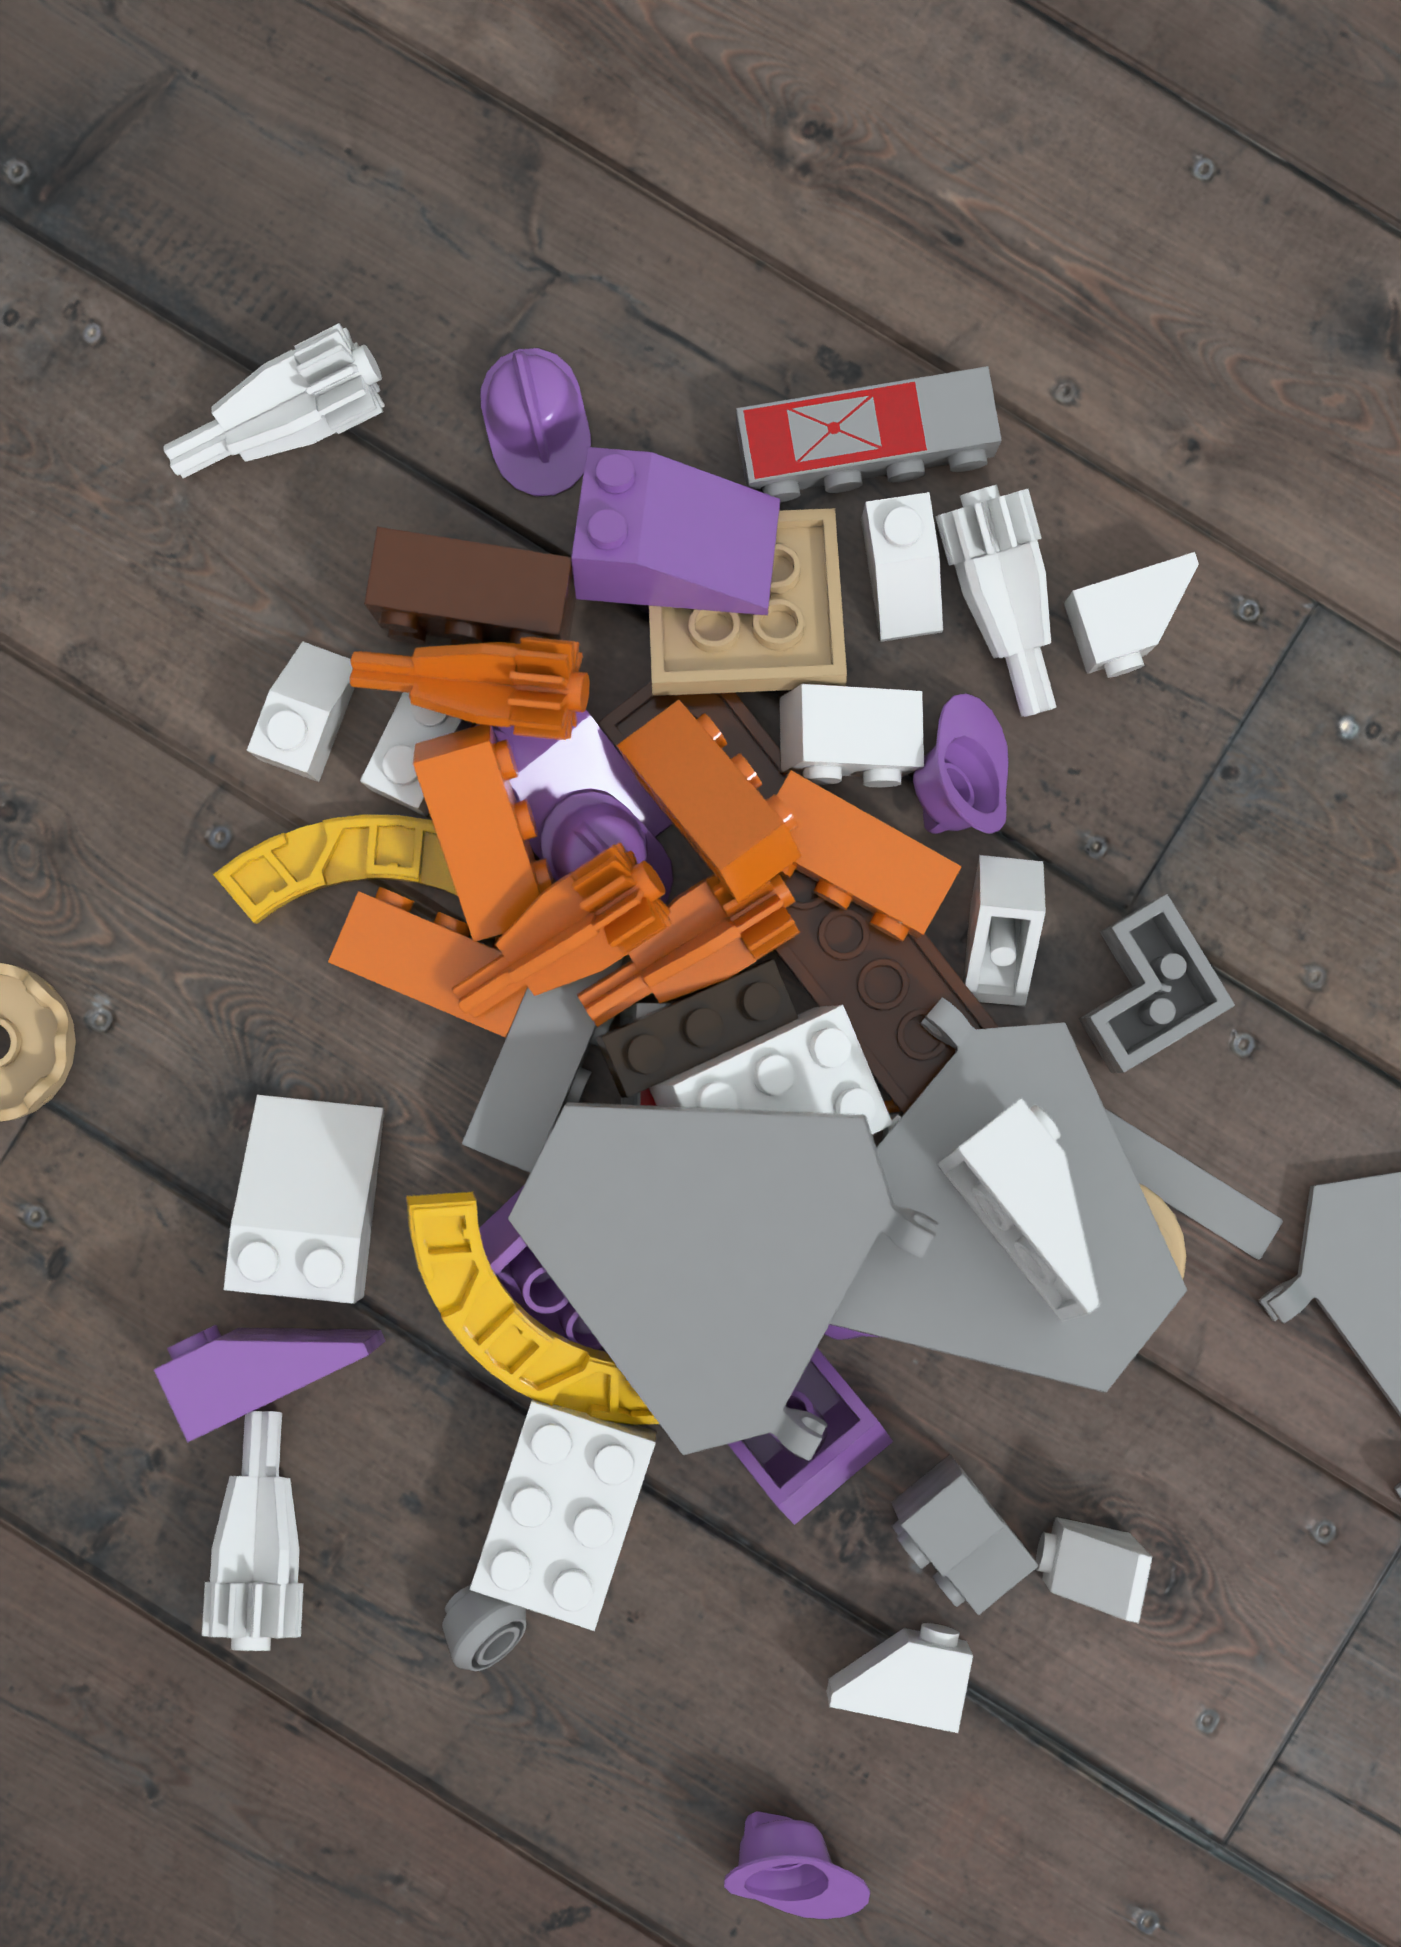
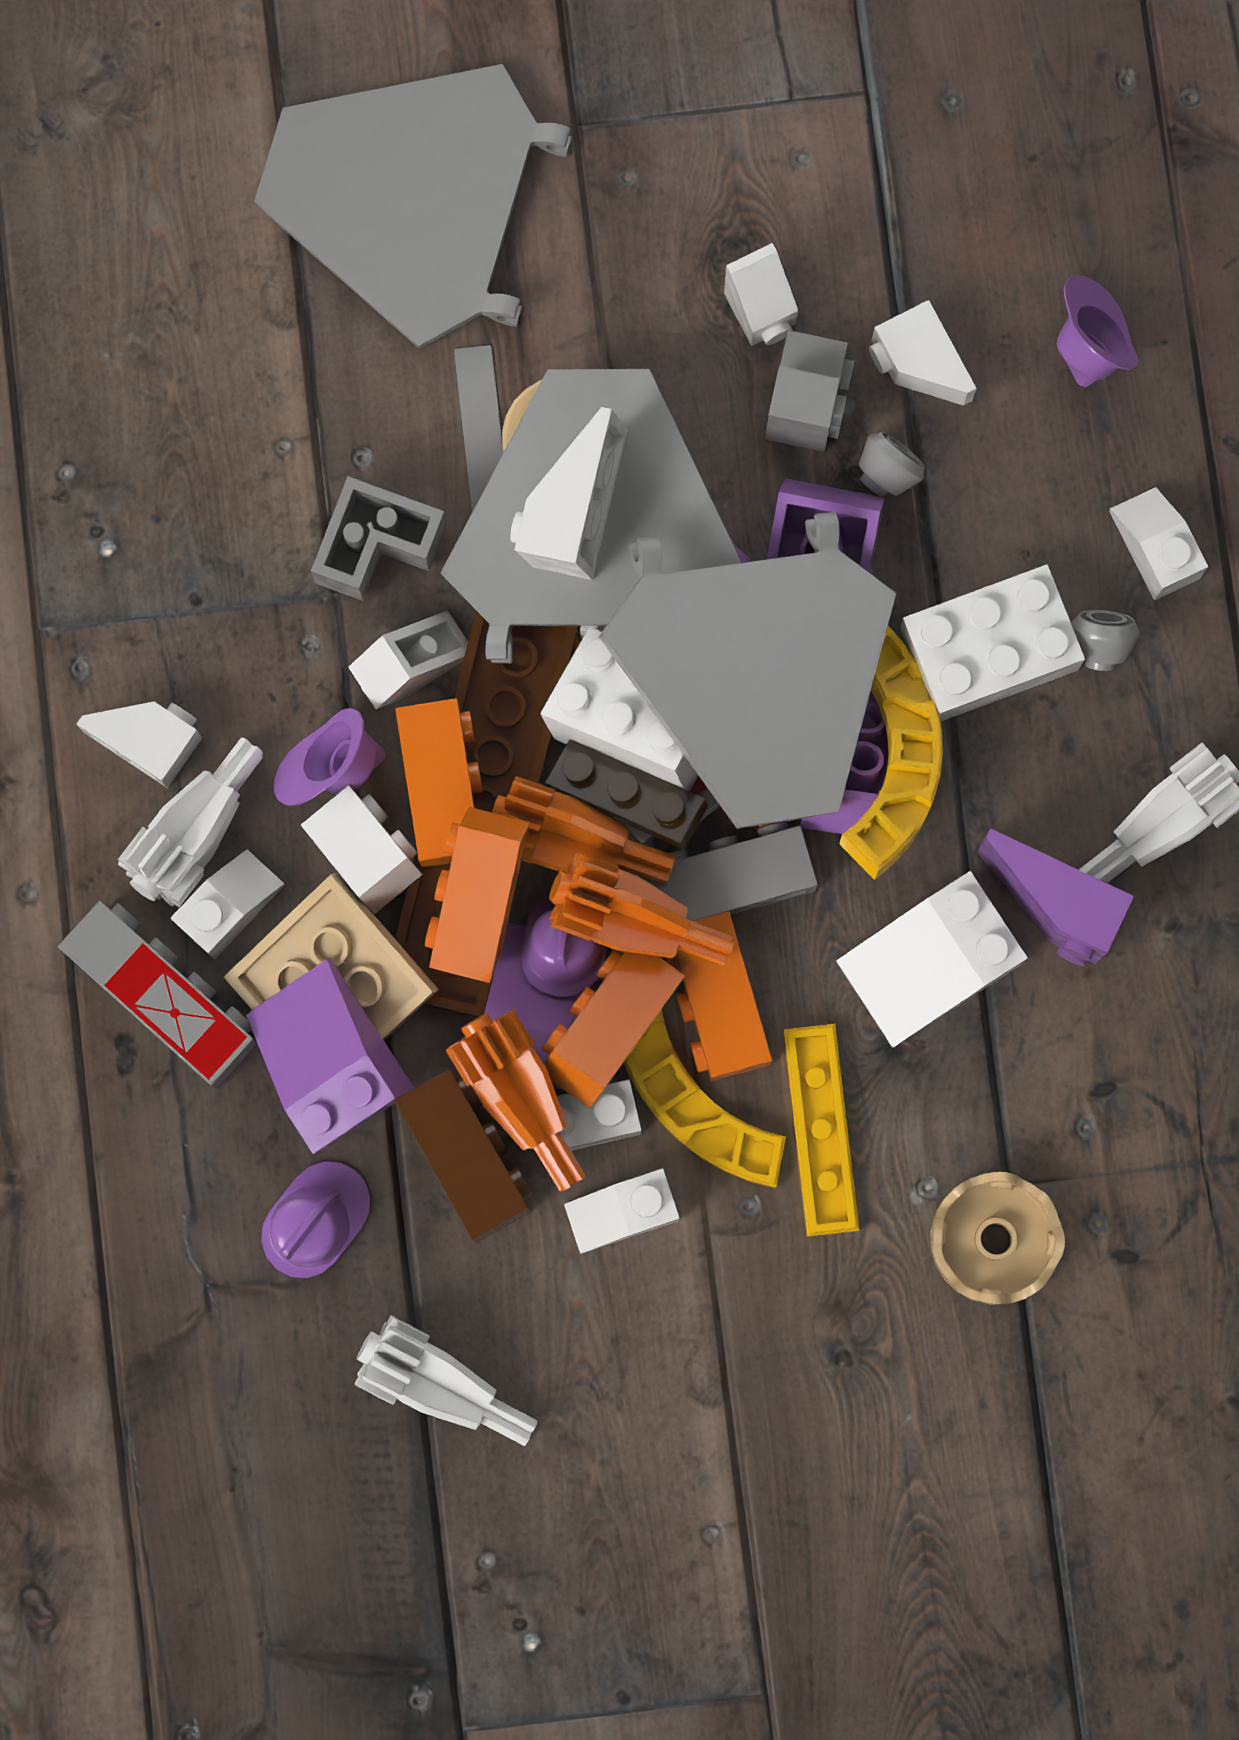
camera: 130 degrees left, 5 degrees down
(234, 962) = (821, 1130): none -> yellow tile
(534, 1760) = (1159, 542): none -> white slope
(823, 1555) = (889, 465): none -> light grey cone

